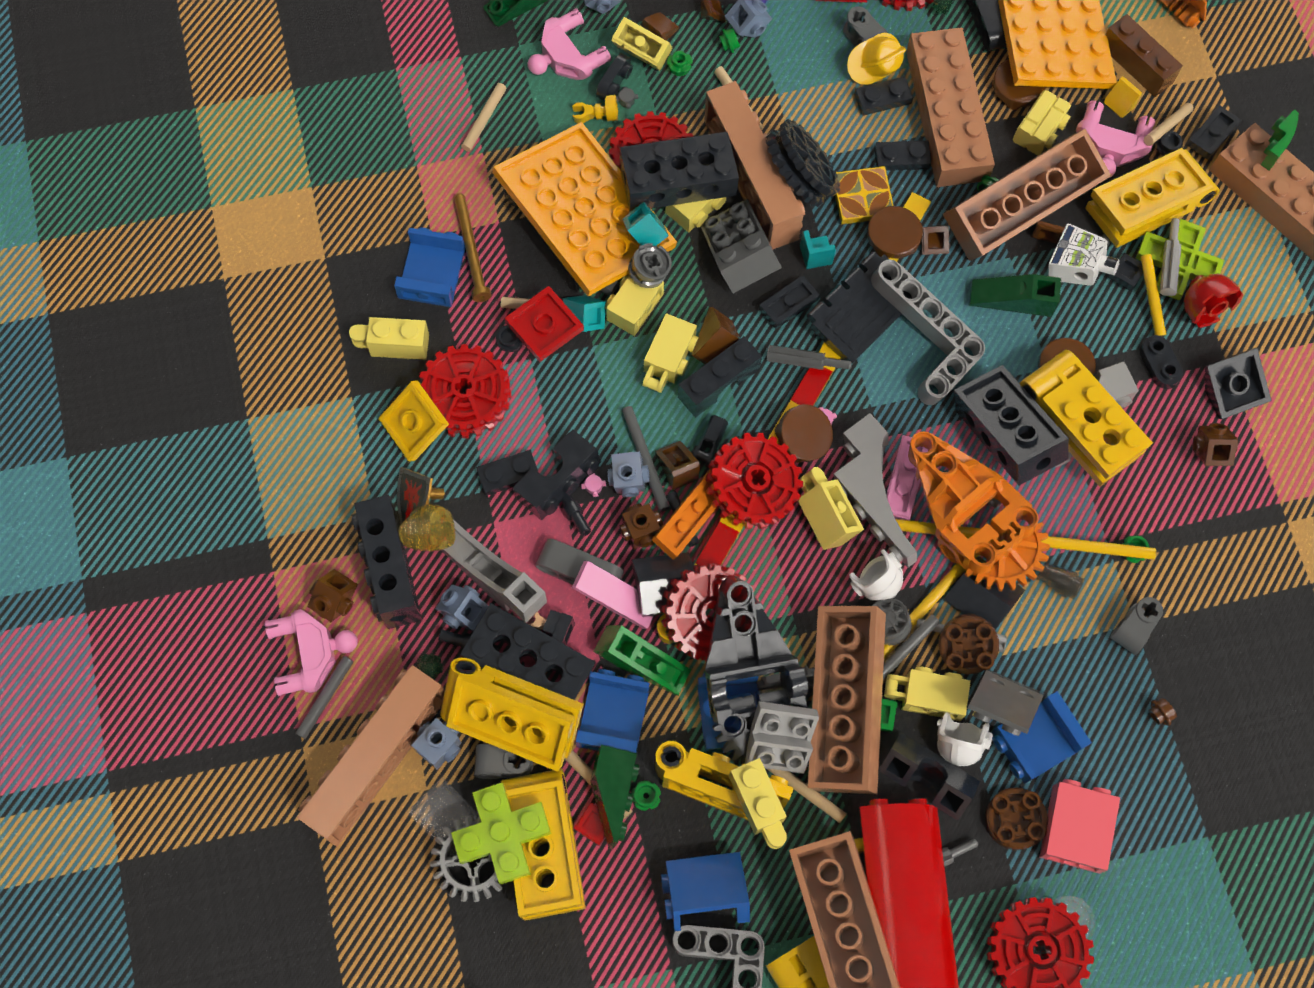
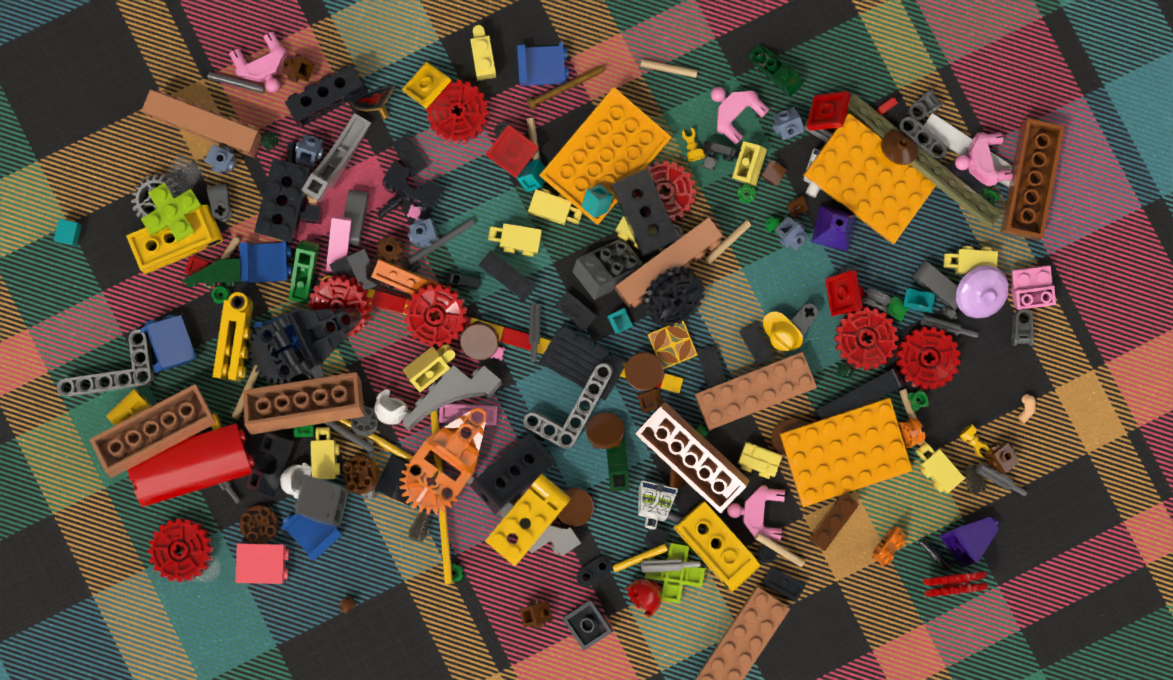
camera: 75 degrees right, 15 degrees up
(428, 529) = (350, 115): clear yellow hair -> none
(510, 713) = (244, 198): yellow hinge -> none
(650, 265) = (568, 210): dark grey wheel -> none
(678, 464) = (441, 262): reddish brown slope -> none
(715, 336) = (536, 267): reddish brown slope -> none
(760, 802) = (218, 360): light yellow brick -> none
(782, 736) = (267, 367): light grey slope -> none
(969, 297) = (605, 431): none -> reddish brown tile
(1123, 97) = (795, 514): yellow slope -> none
(1135, 628) = (397, 579): dark grey piece -> none
(1283, 134) = (777, 626): green slope -> none

